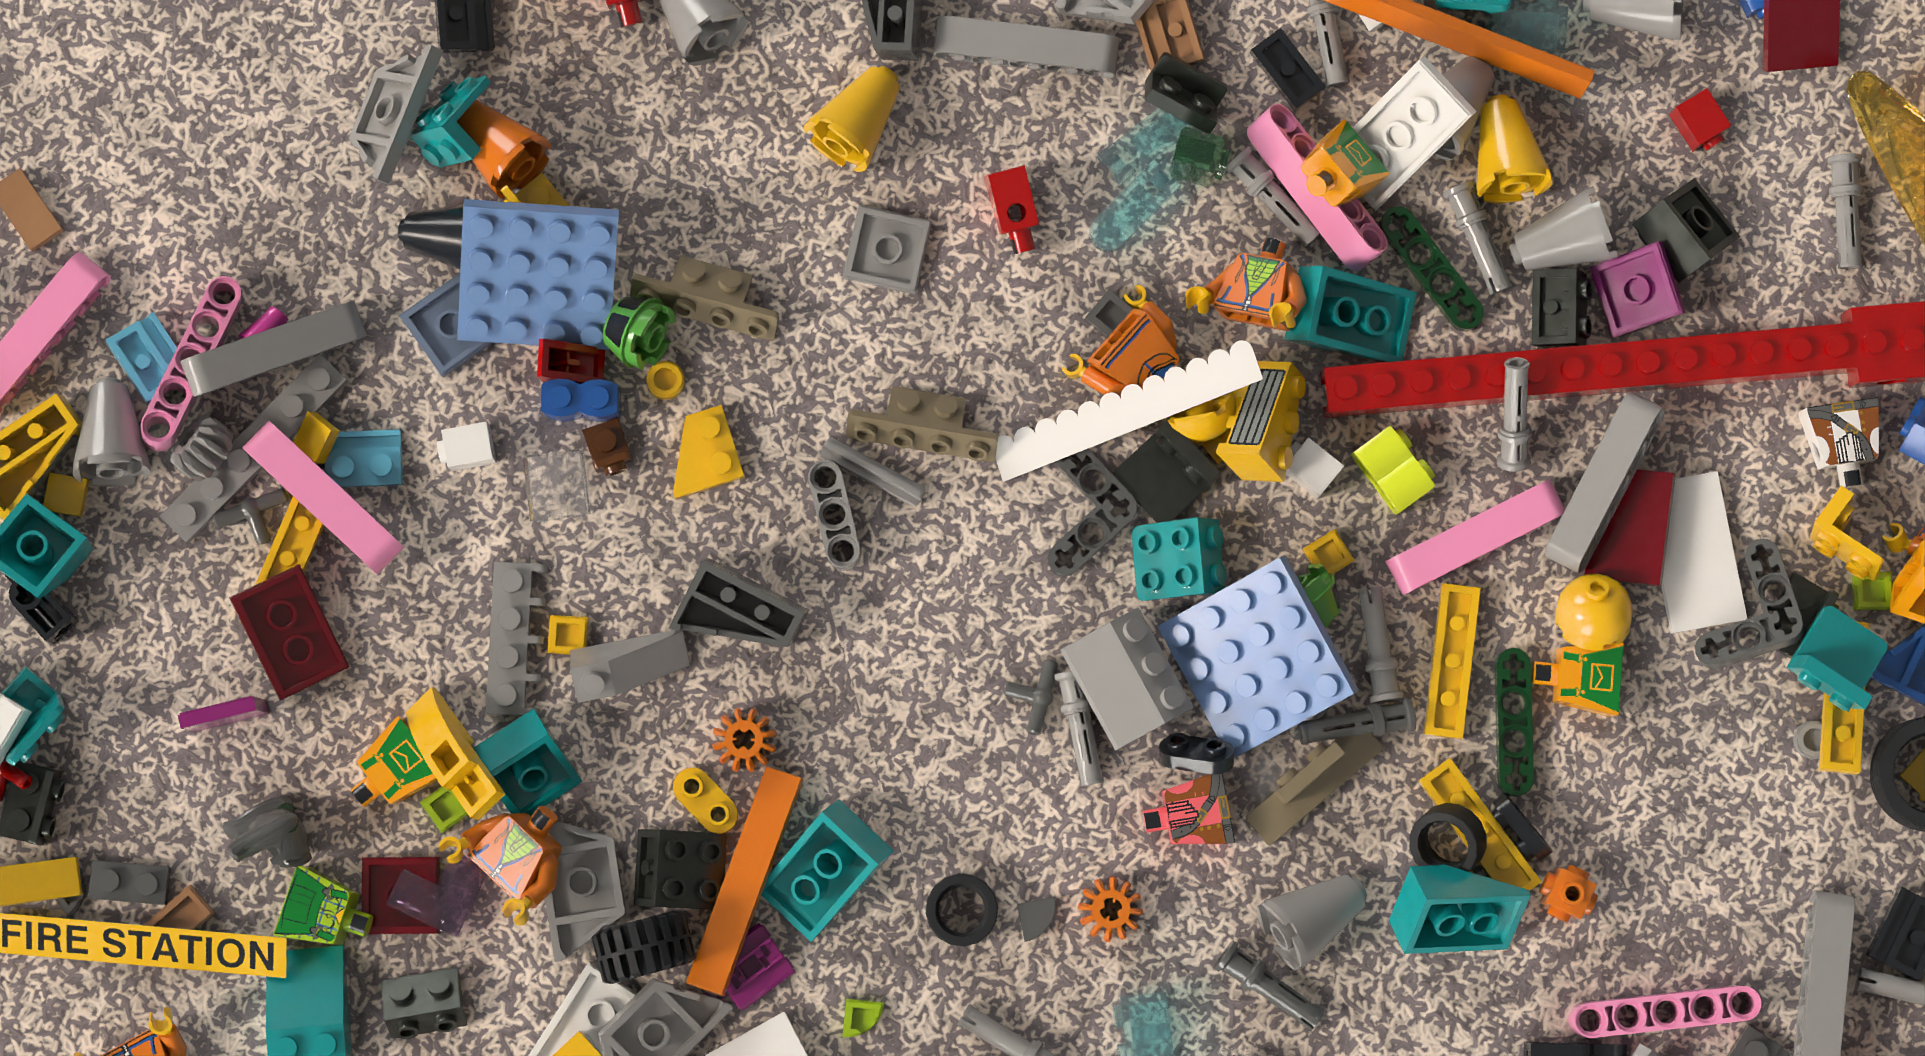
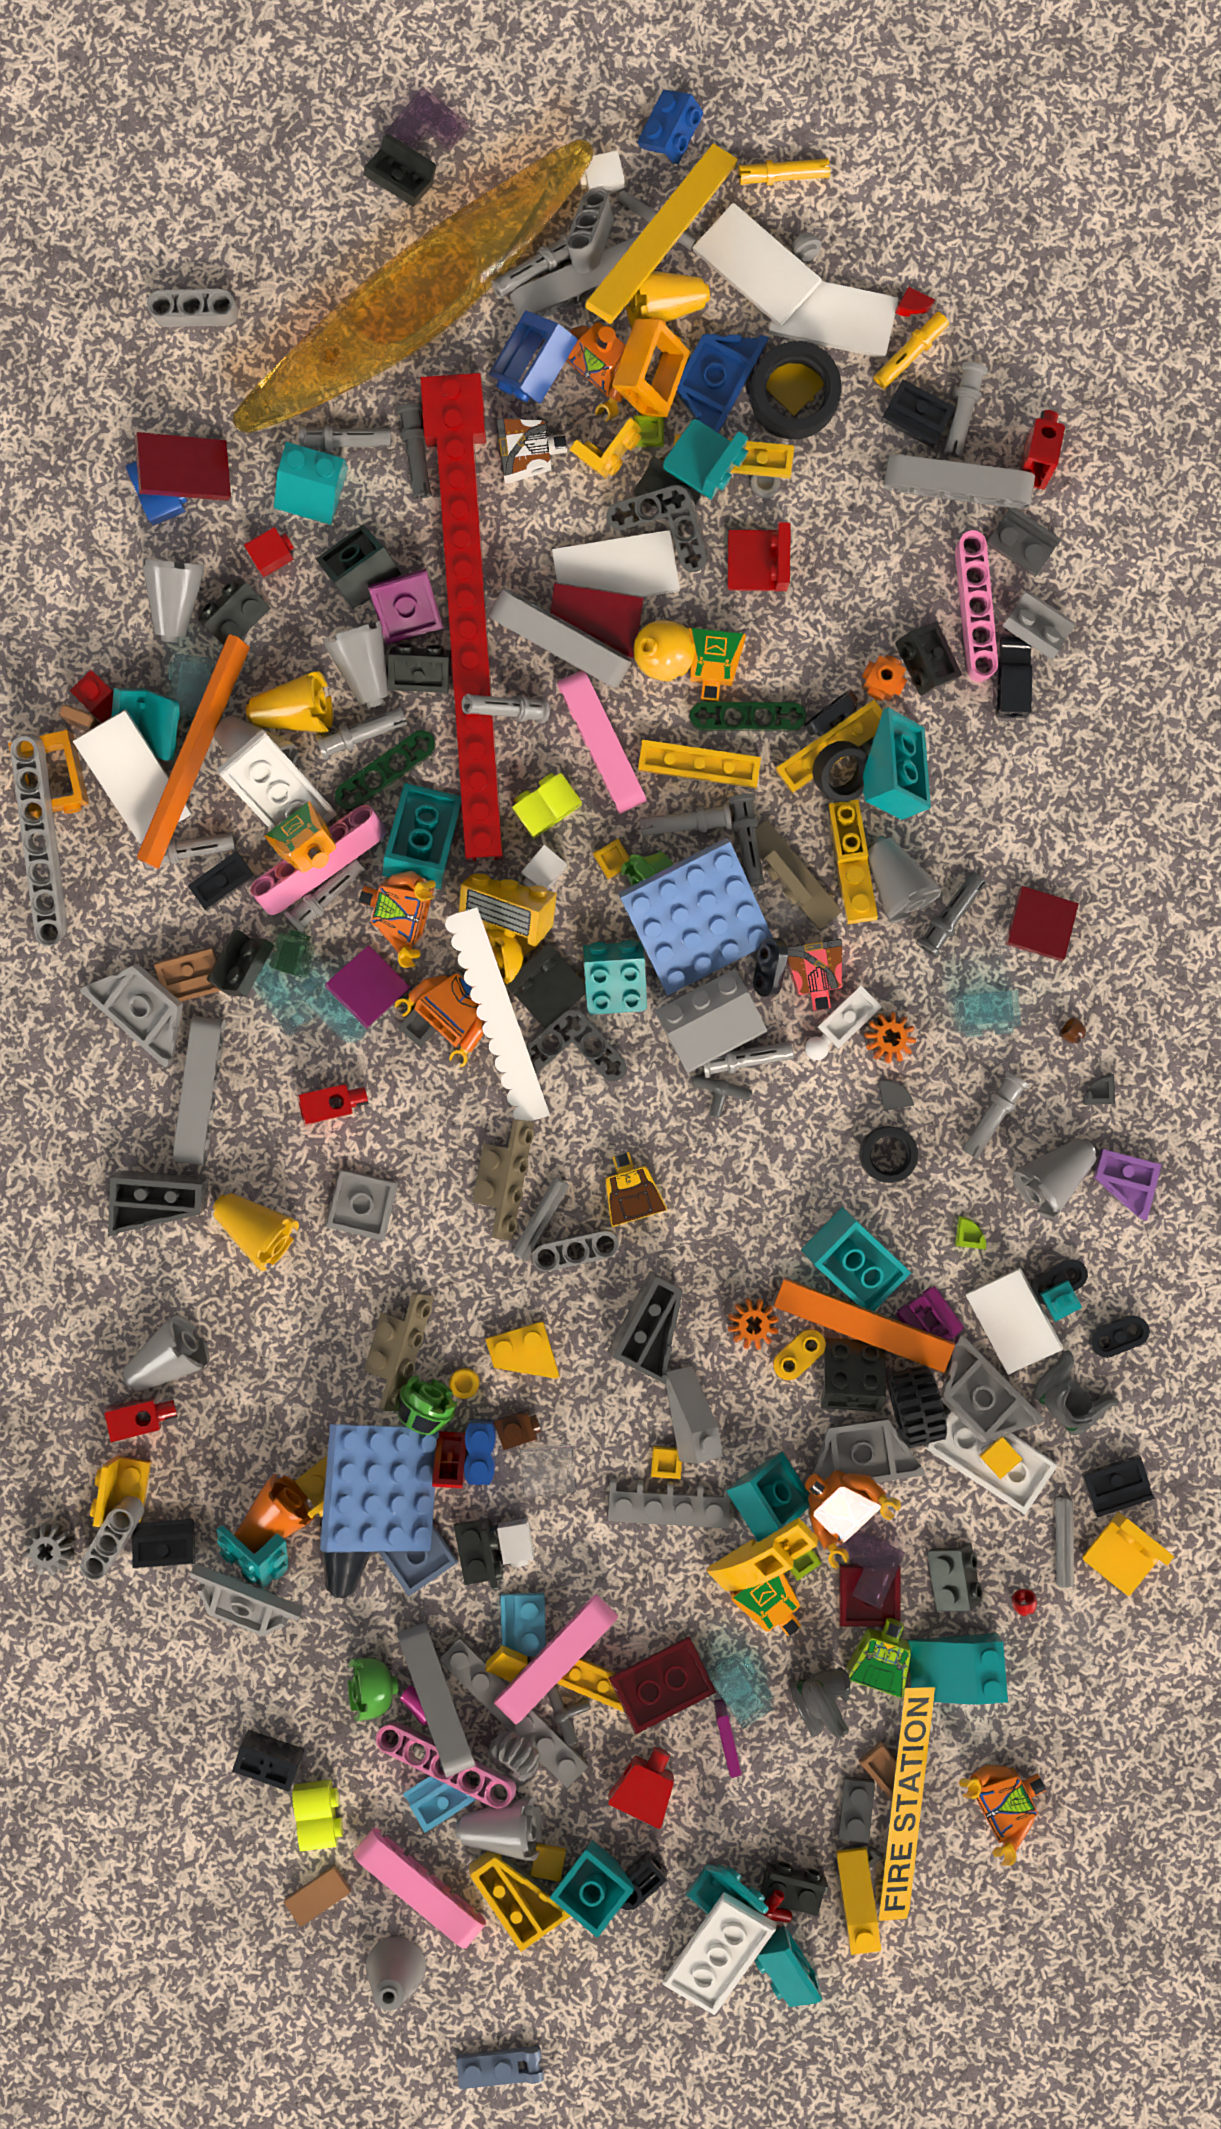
camera: 85 degrees left, 5 degrees up
(127, 206) = (316, 1815): none -> neon yellow brick
(158, 613) = (644, 1788): none -> red torso
(196, 145) = (268, 1760): none -> black hinge
(282, 733) = (741, 1689): none -> clear light blue brick
(286, 270) = (370, 1688): none -> bright green cylinder
(454, 401) = (477, 1552): none -> pearl dark grey bracket
(908, 584) = (631, 1192): none -> torso
(1127, 848) = (842, 1023): none -> white plate
(1160, 251) = (367, 987): none -> magenta tile
(1333, 857) = (852, 861): none -> yellow slope
(1596, 951) = (928, 658): none -> pearl dark grey bracket
(1624, 78) = (234, 611): none -> pearl dark grey bracket
(1714, 732) = (759, 559): none -> red bracket
(1787, 168) = (309, 483): none -> teal slope
(1853, 294) = (413, 437): none -> dark grey pin

